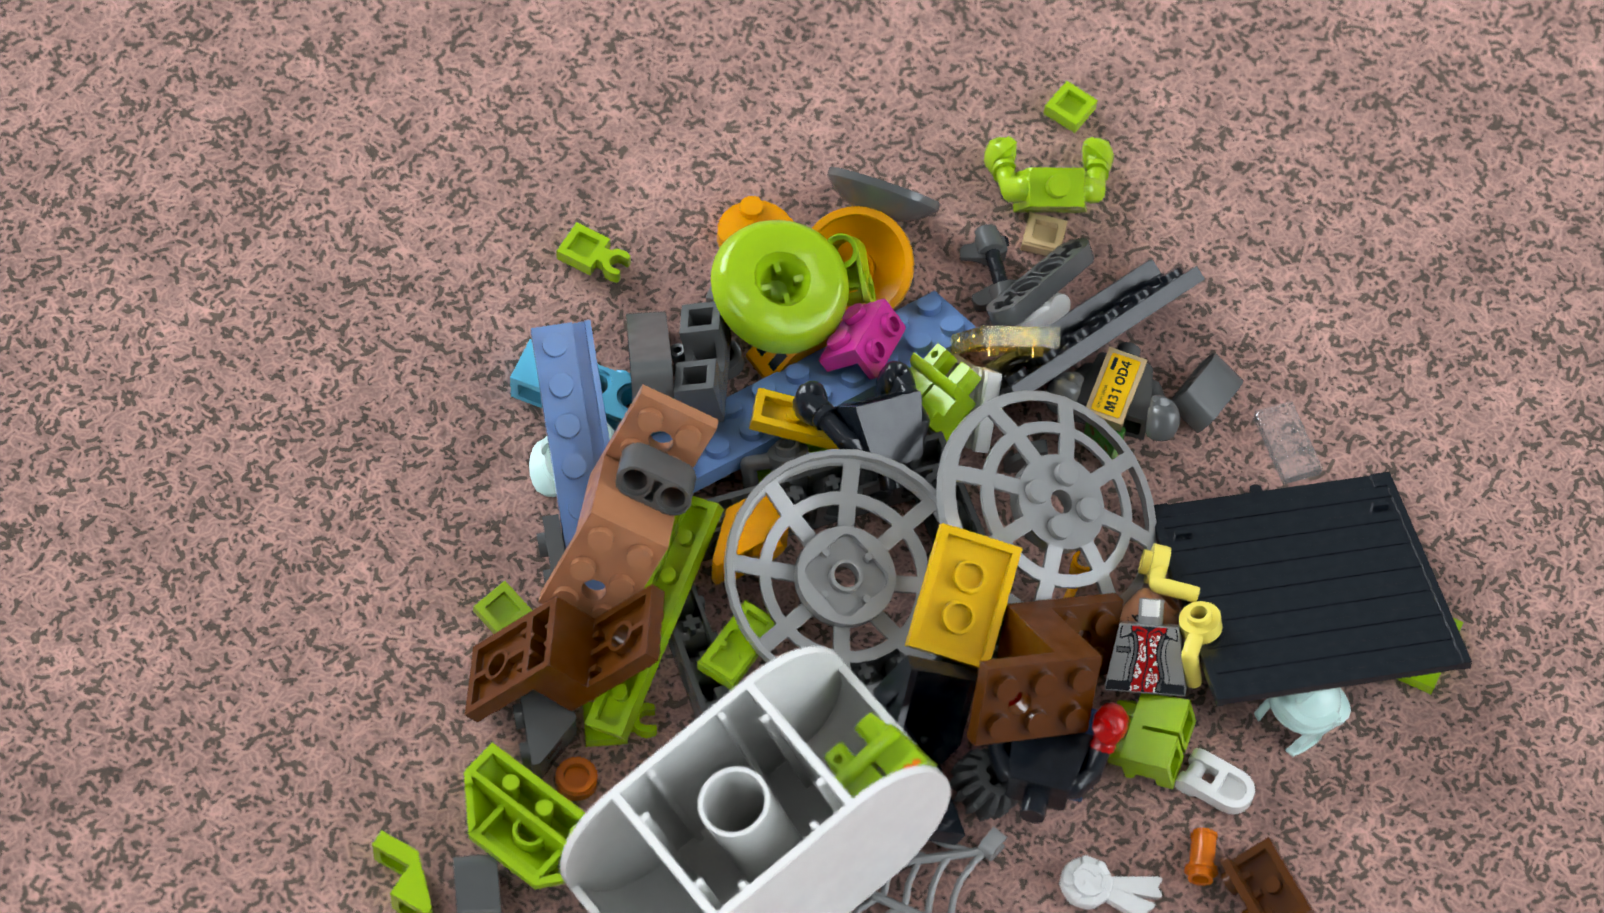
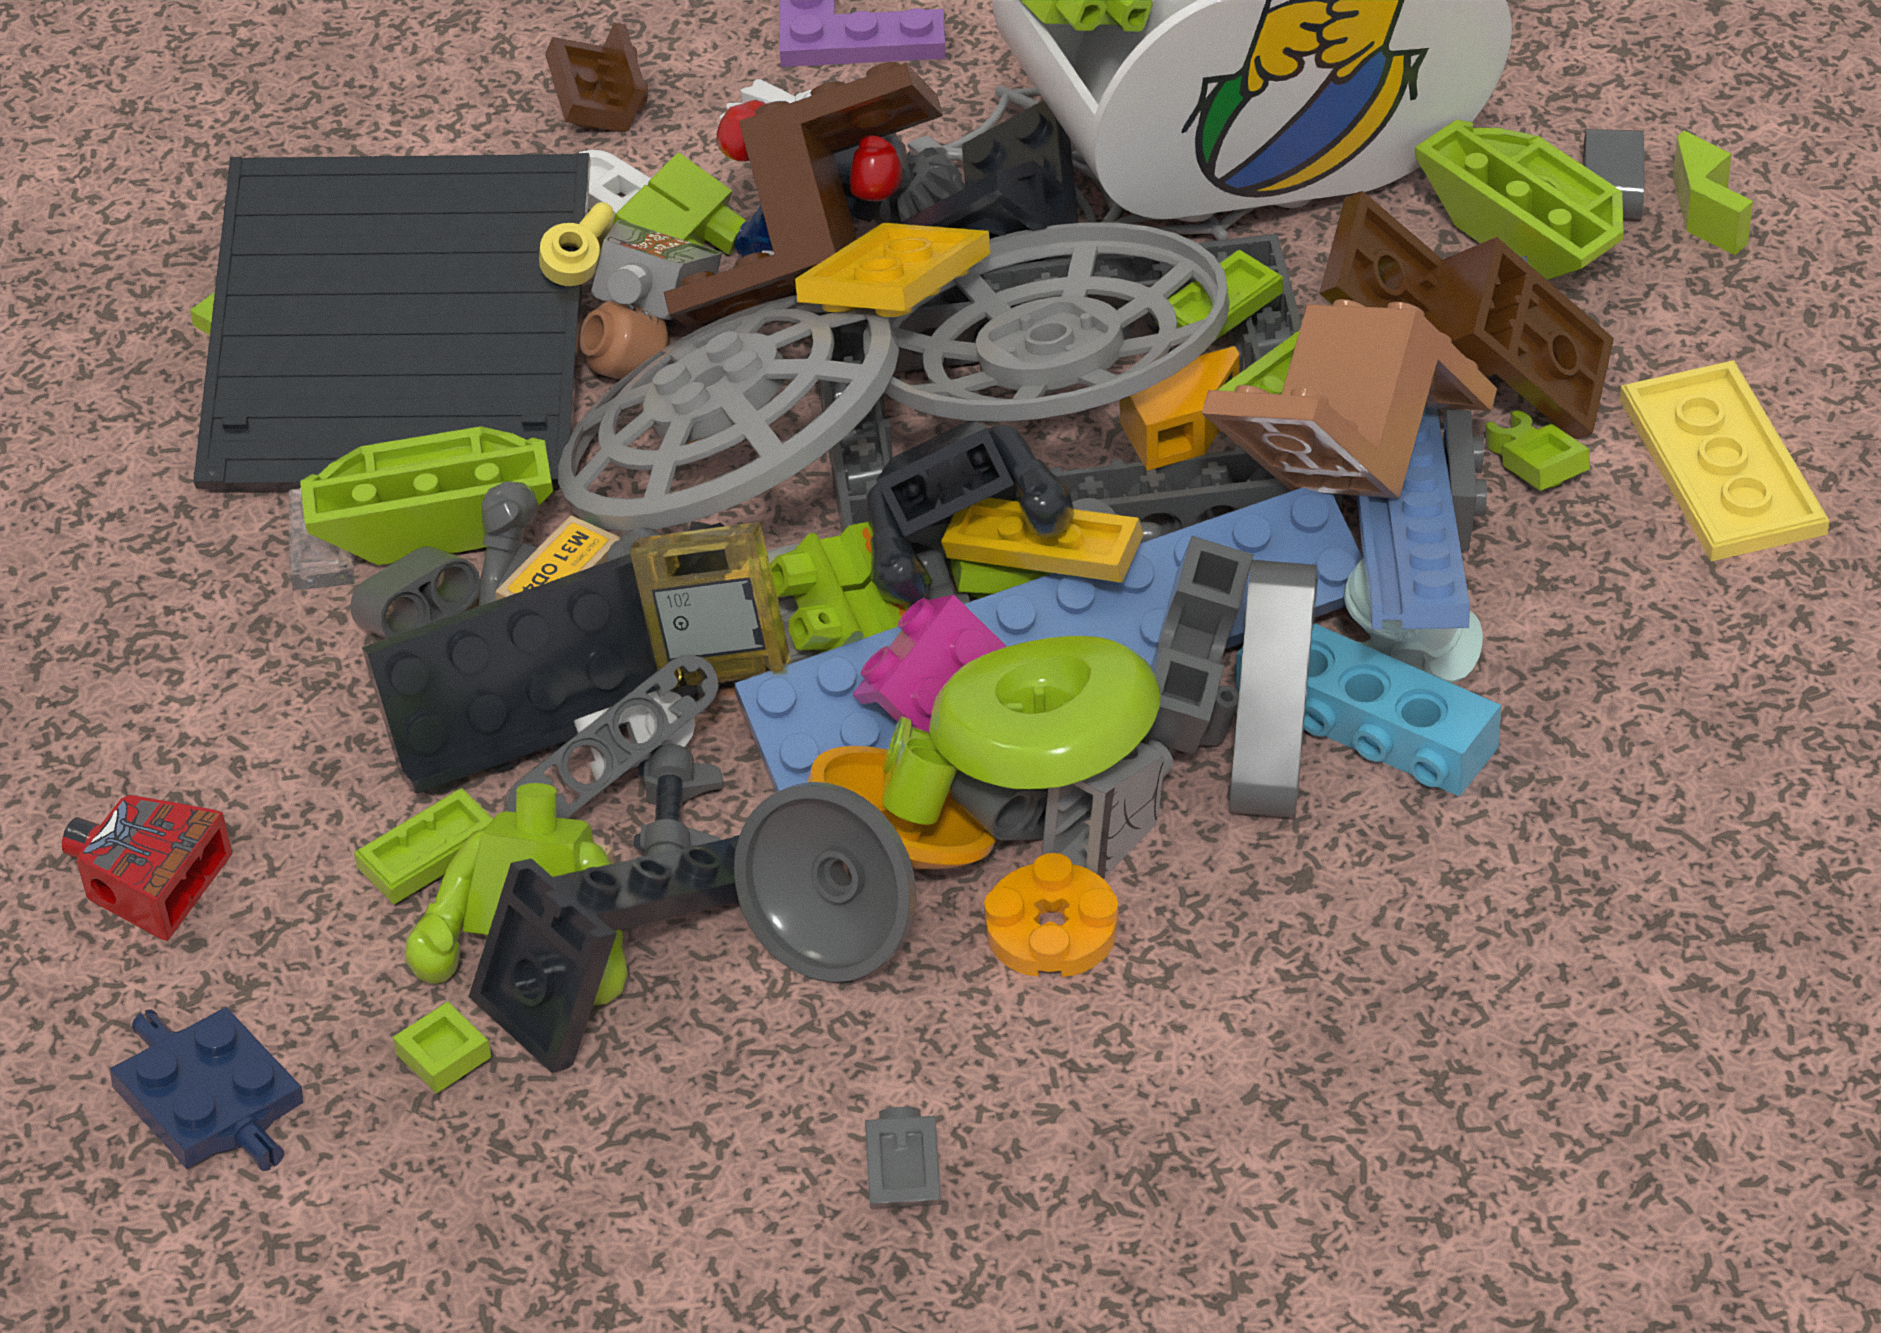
camera: 160 degrees left, 15 degrees down
(384, 640) = (1723, 460): none -> light yellow tile
(590, 250) = (1337, 917): lime plate -> none
(655, 479) = (1328, 373): dark grey beam -> none
(802, 77) = (902, 1159): none -> dark grey bracket
(985, 175) = (559, 930): none -> black bracket
(1128, 230) = (421, 846): none -> lime plate
(1155, 566) = (592, 363): light yellow plate -> none
(1190, 73) = (207, 1088): none -> dark blue plate
(1201, 864) = (665, 115): orange pin -> none
(1230, 457) = (419, 491): none -> lime wedge
(1285, 193) = (149, 859): none -> red torso

